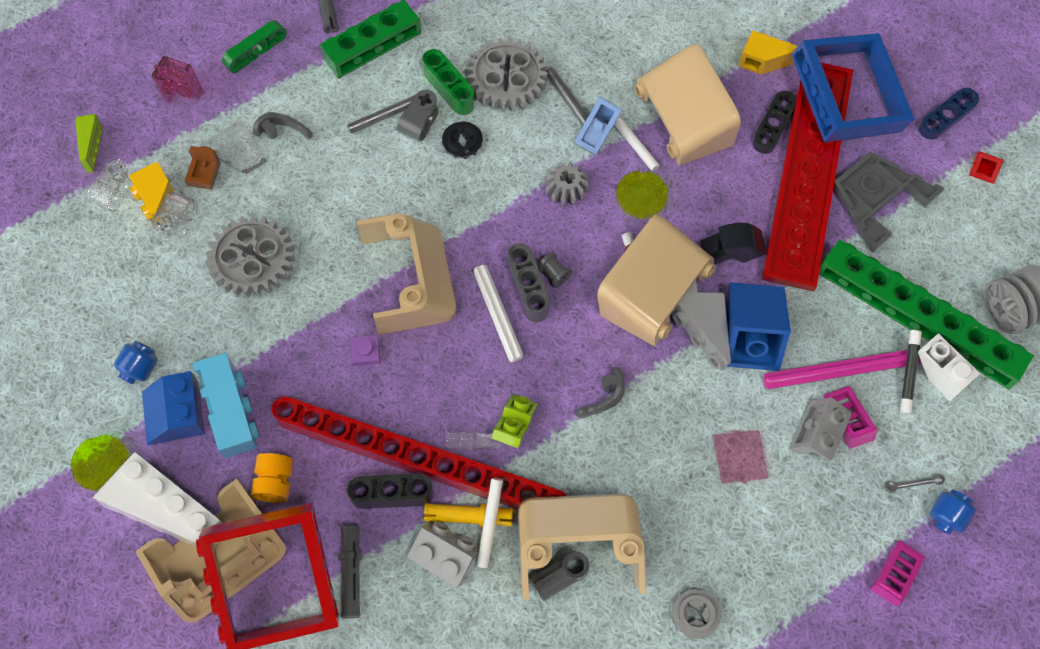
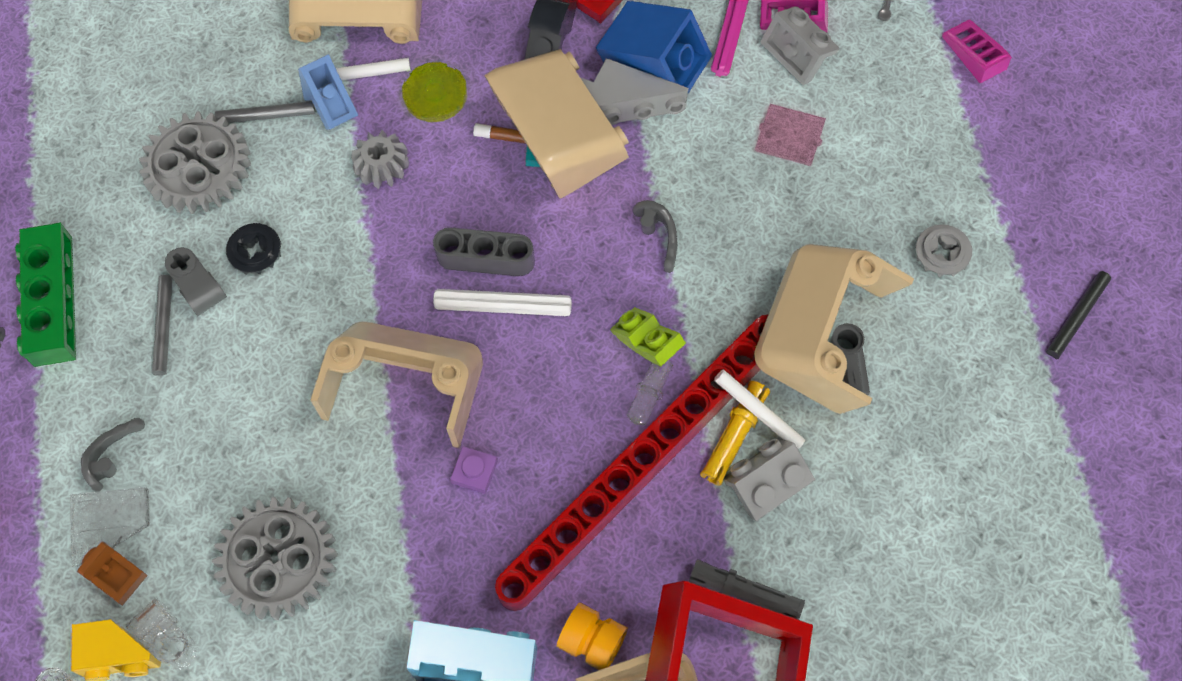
camera: 60 degrees left, 0 degrees up
(378, 484) = (673, 489): pearl dark grey beam -> none
(446, 72) = (151, 225): green beam -> none
(554, 269) = (483, 217): dark grey bush -> none

